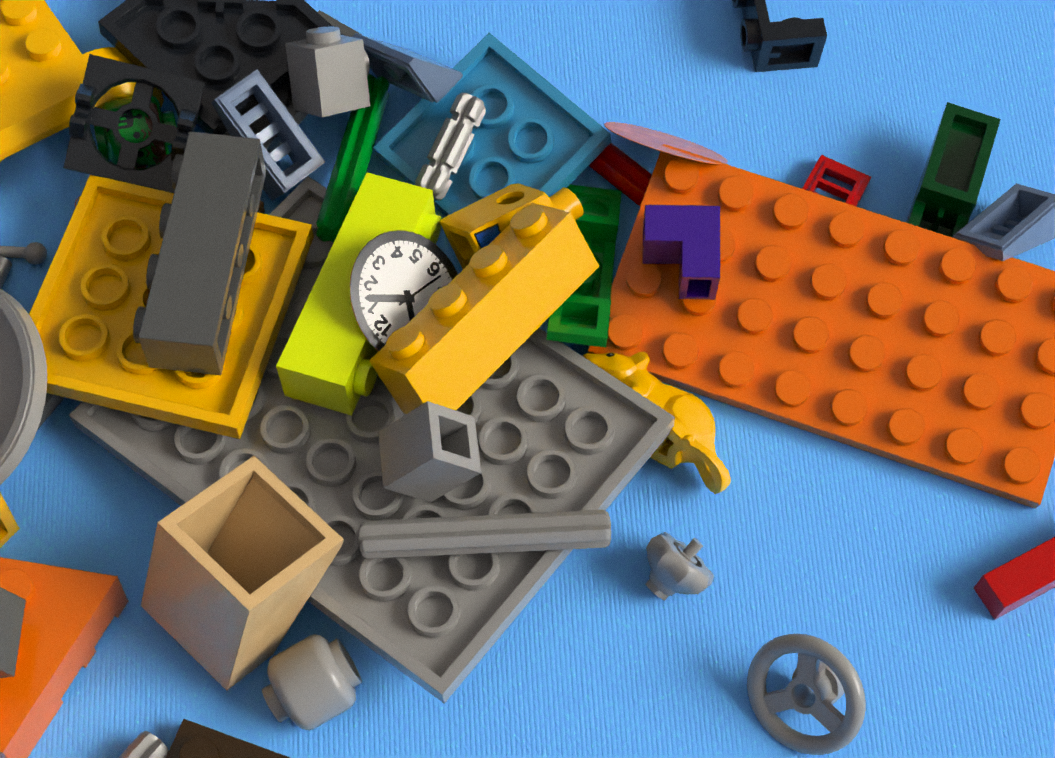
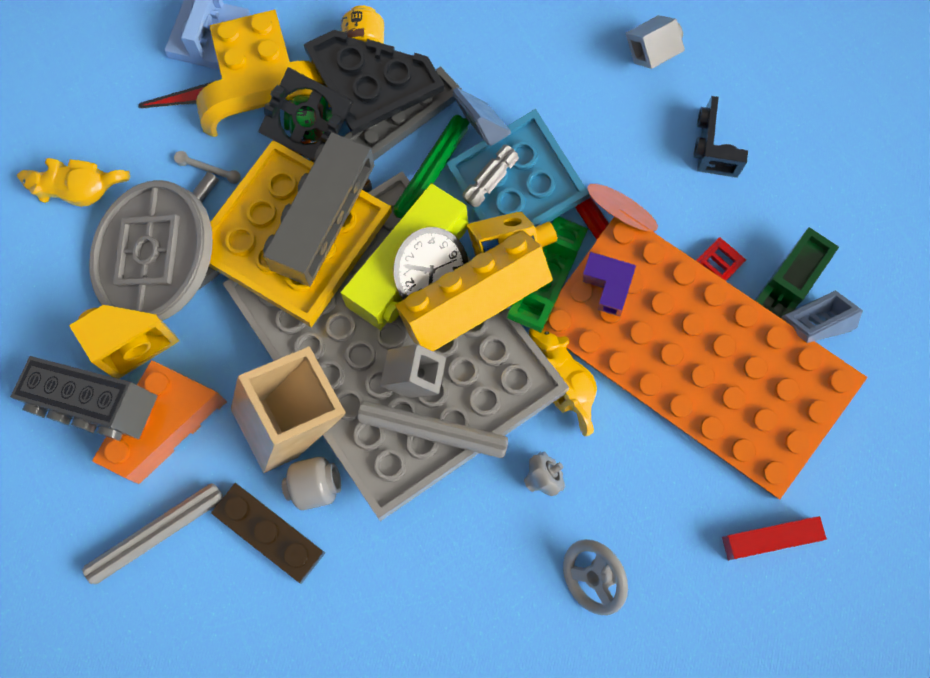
camera: 20 degrees right, 10 degrees up
(293, 139) = (399, 147): sand blue slope -> none
(328, 72) = (430, 111): light grey brick -> none

